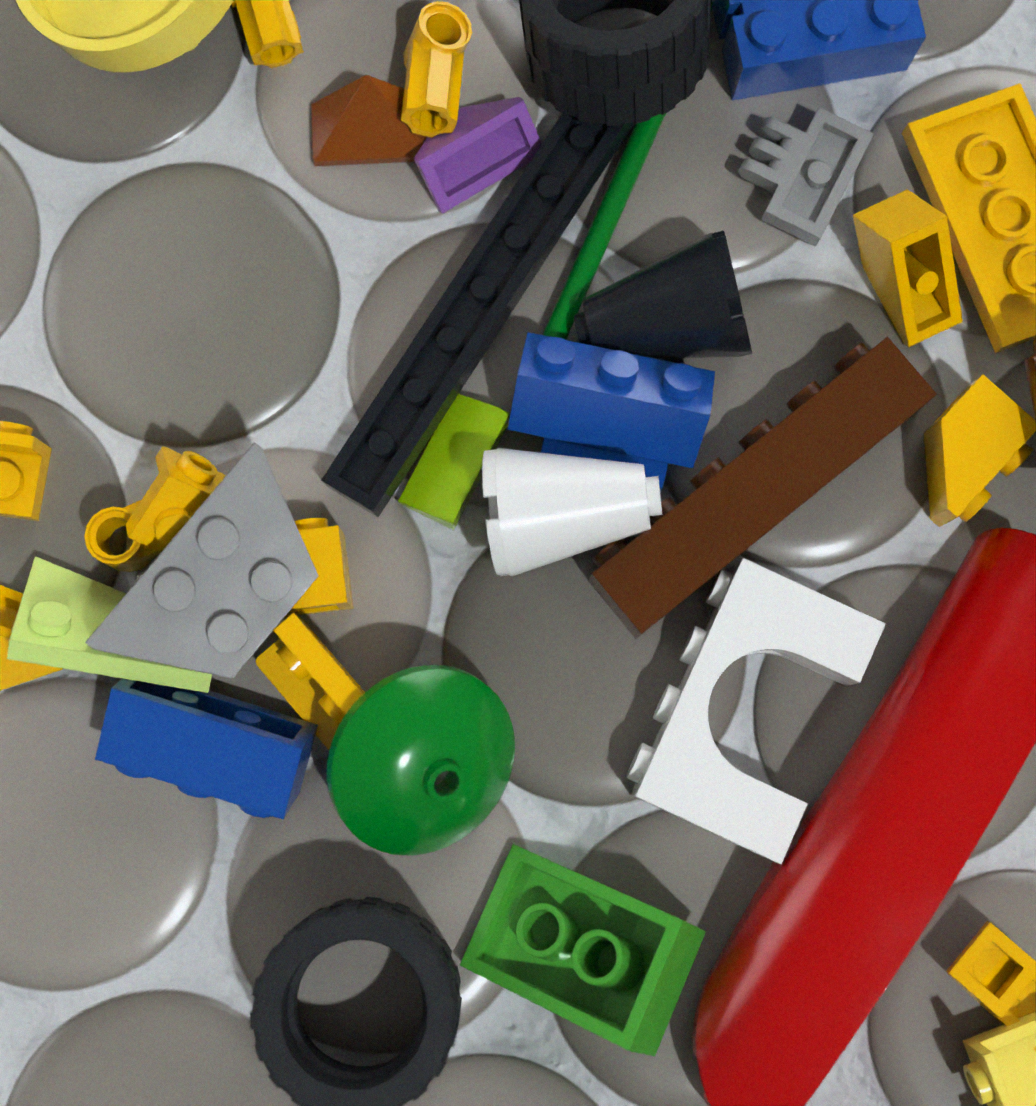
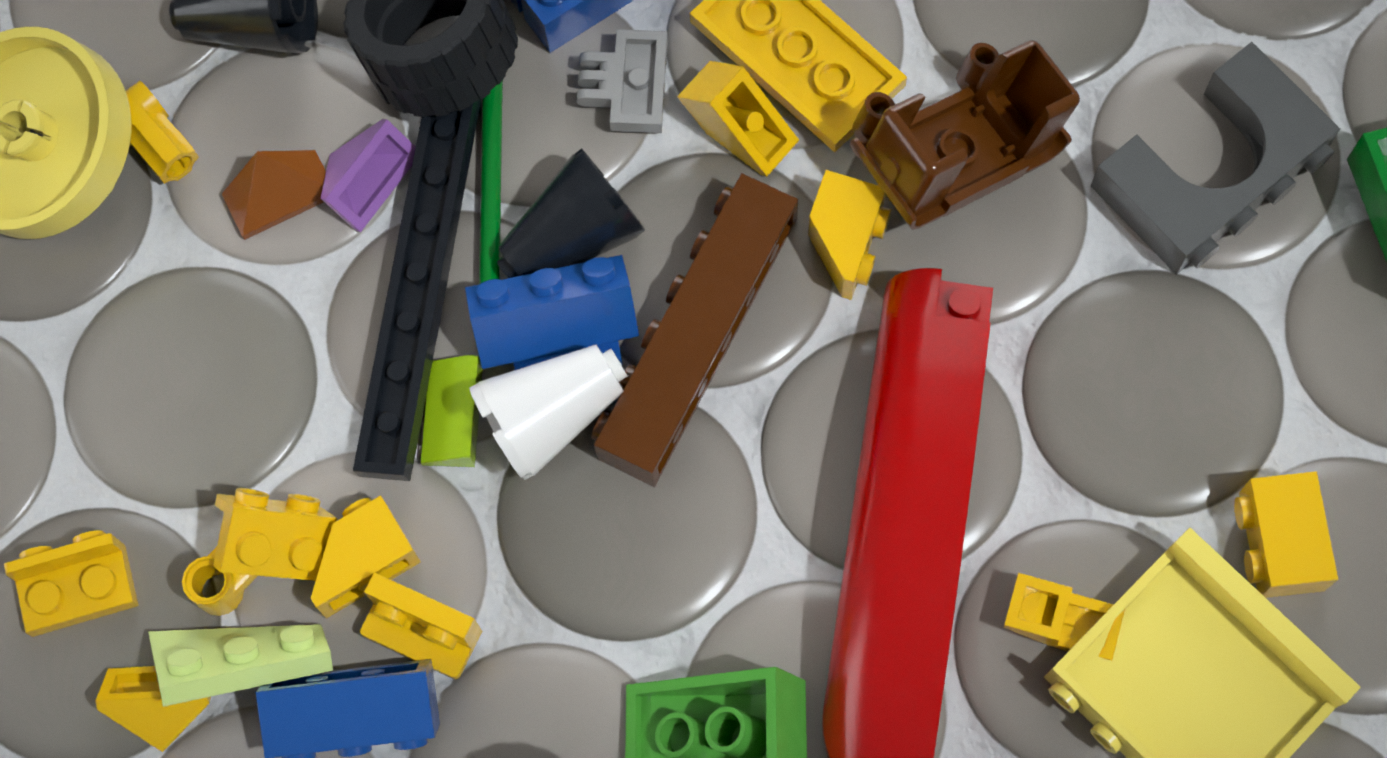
camera: 15 degrees left, 10 degrees down
(217, 581) = (304, 573): light grey wing -> none
(400, 742) = (496, 649): green dish -> none
(435, 69) = (308, 126): yellow piece -> none
(751, 615) = (736, 565): white arch -> none

